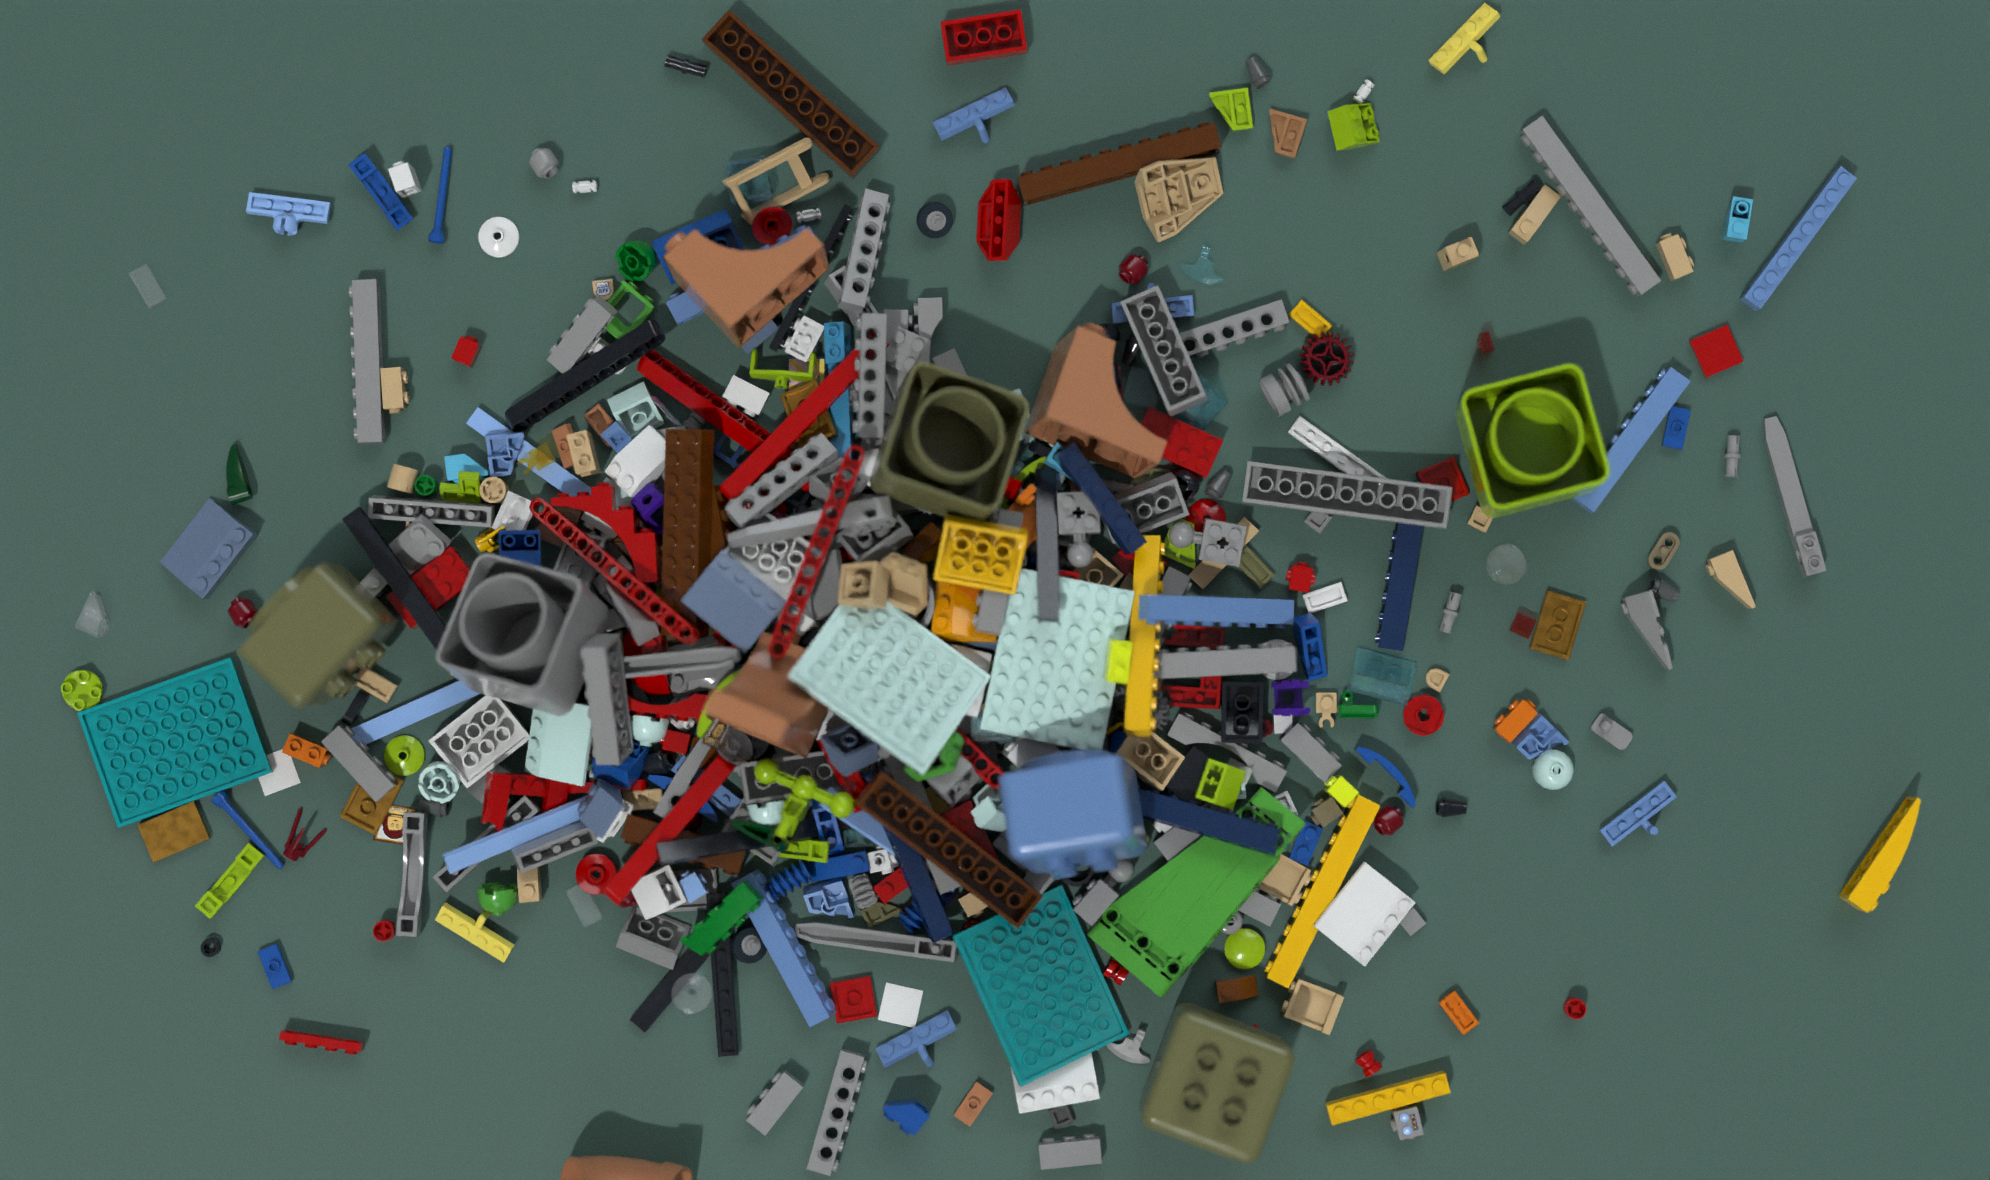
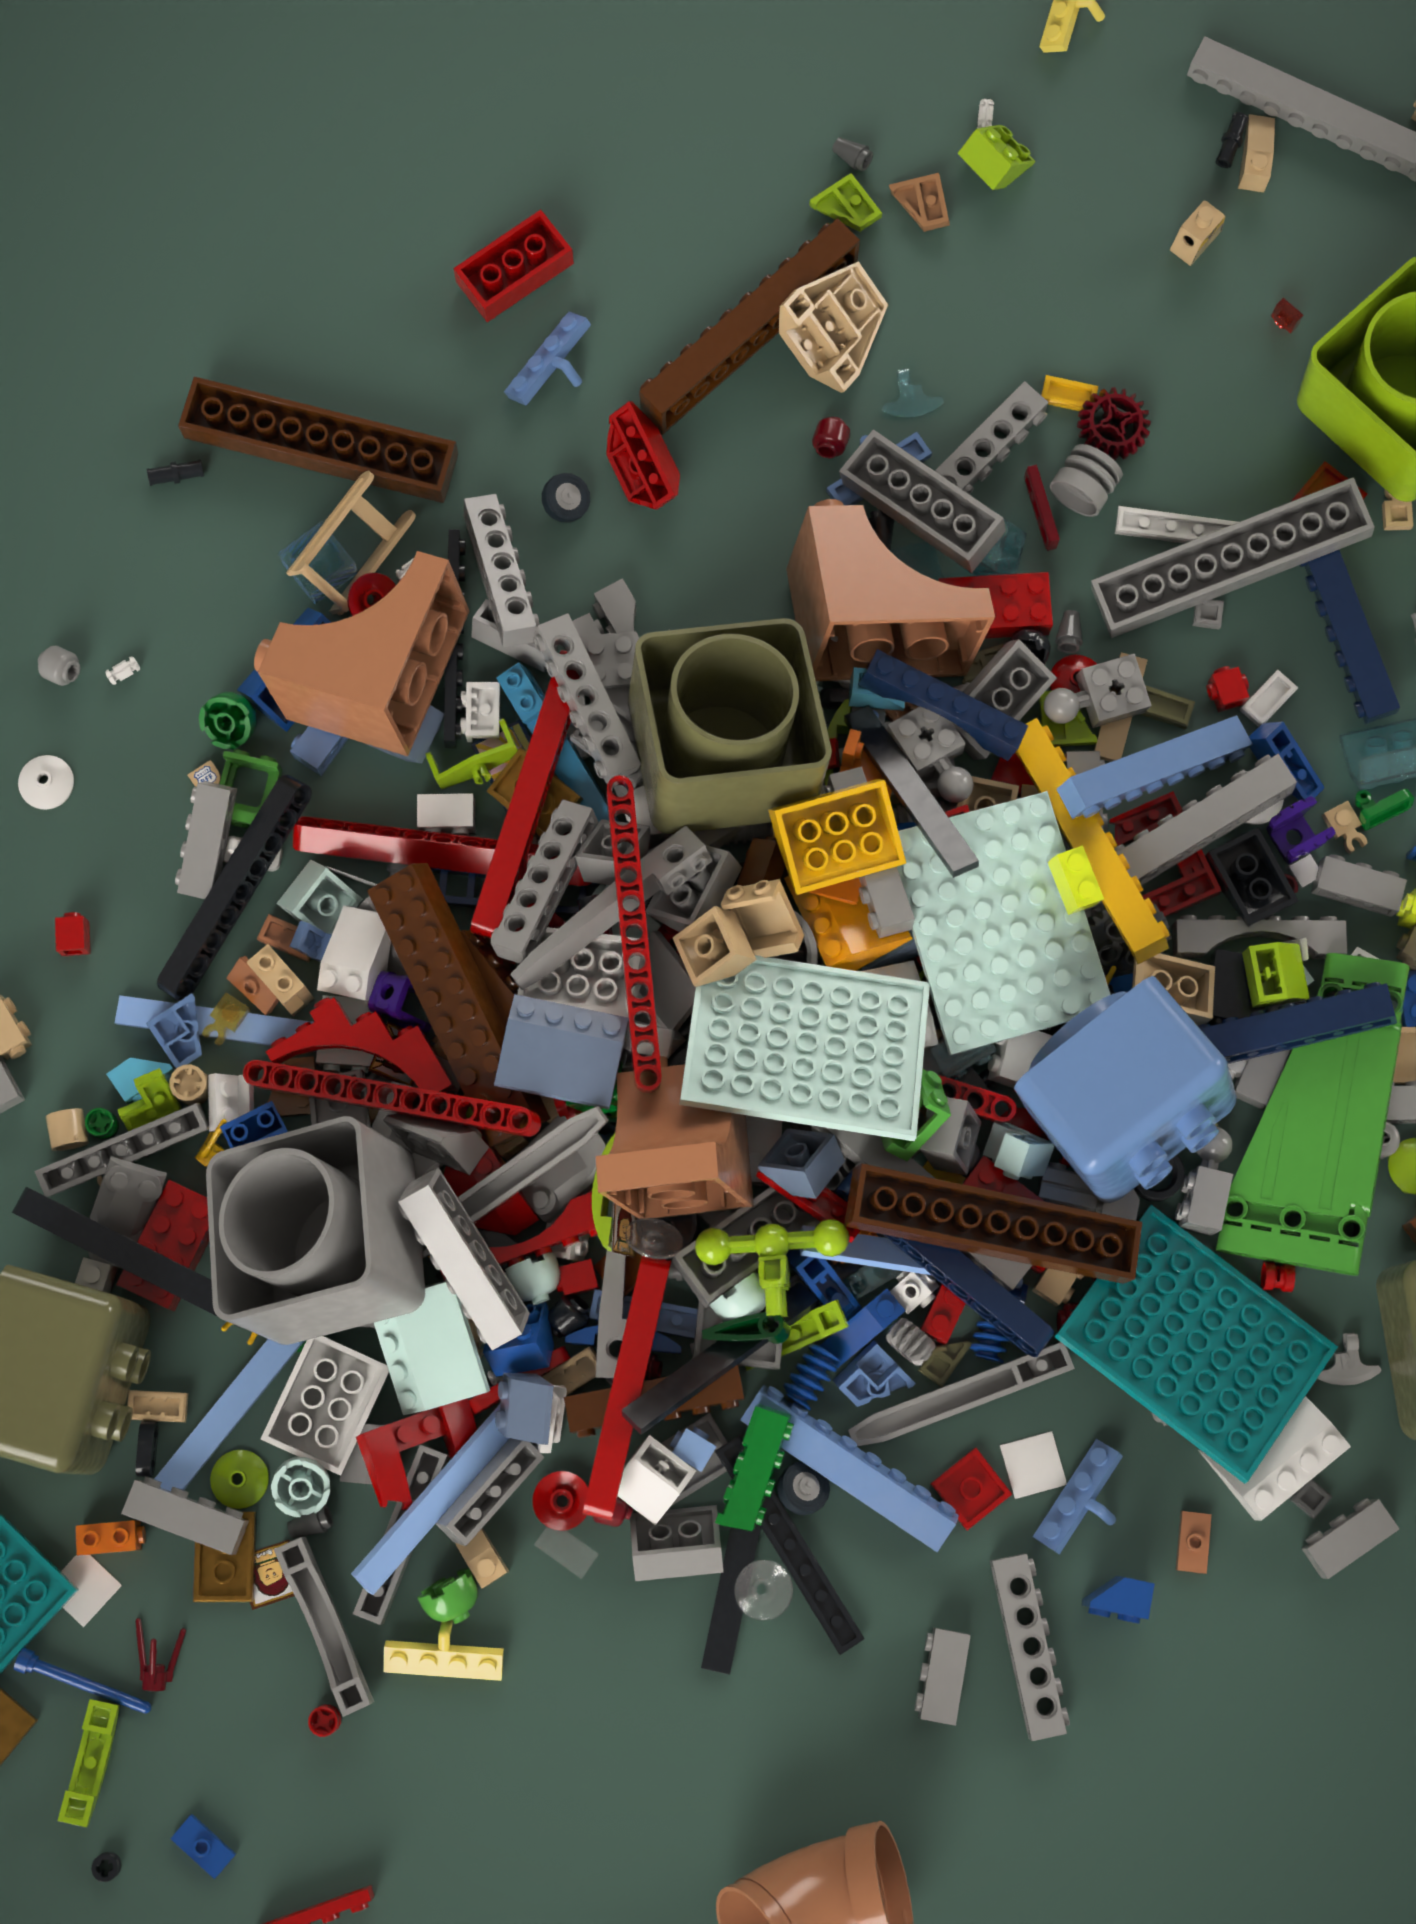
camera: 30 degrees left, 10 degrees down
(1246, 391) = (1041, 507): none -> dark red tile

